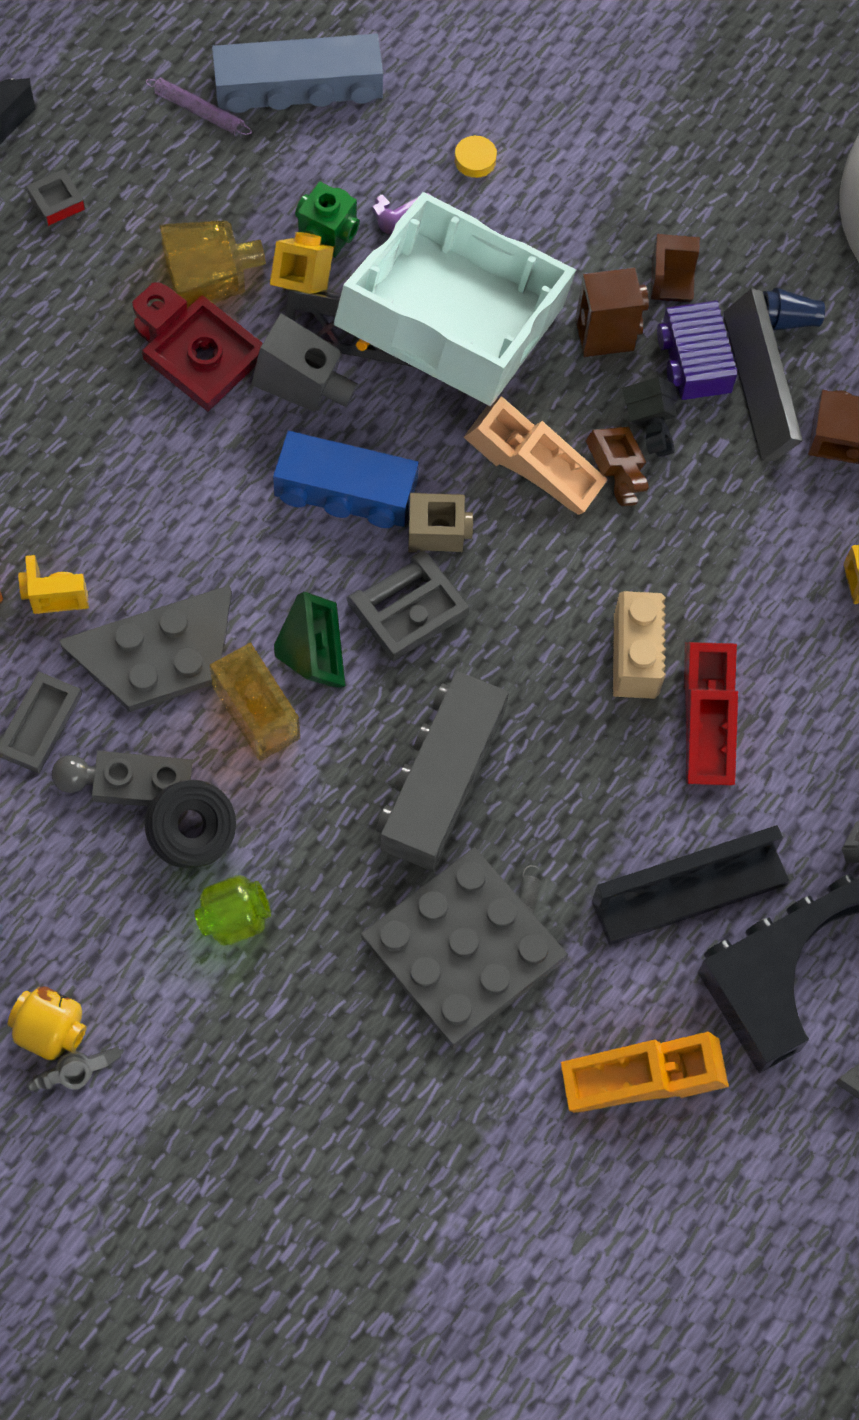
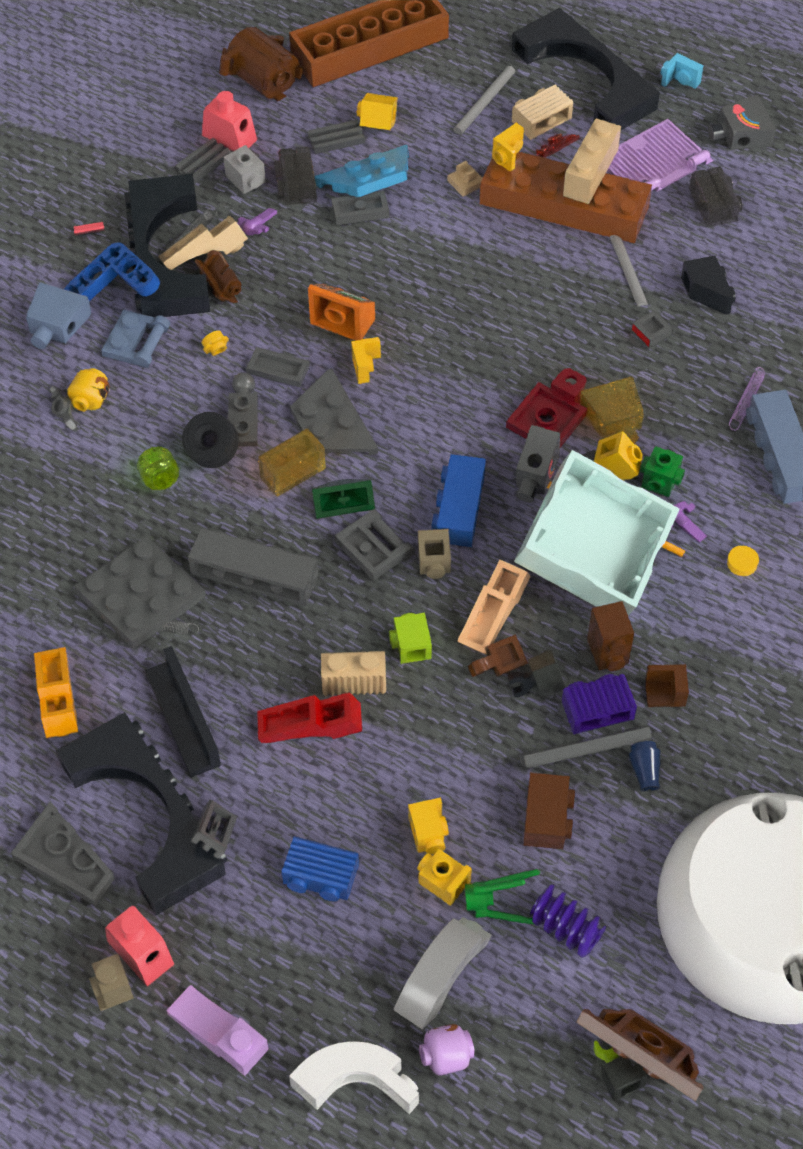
camera: 90 degrees right, 10 degrees down
(580, 566) = (411, 638): none -> lime brick

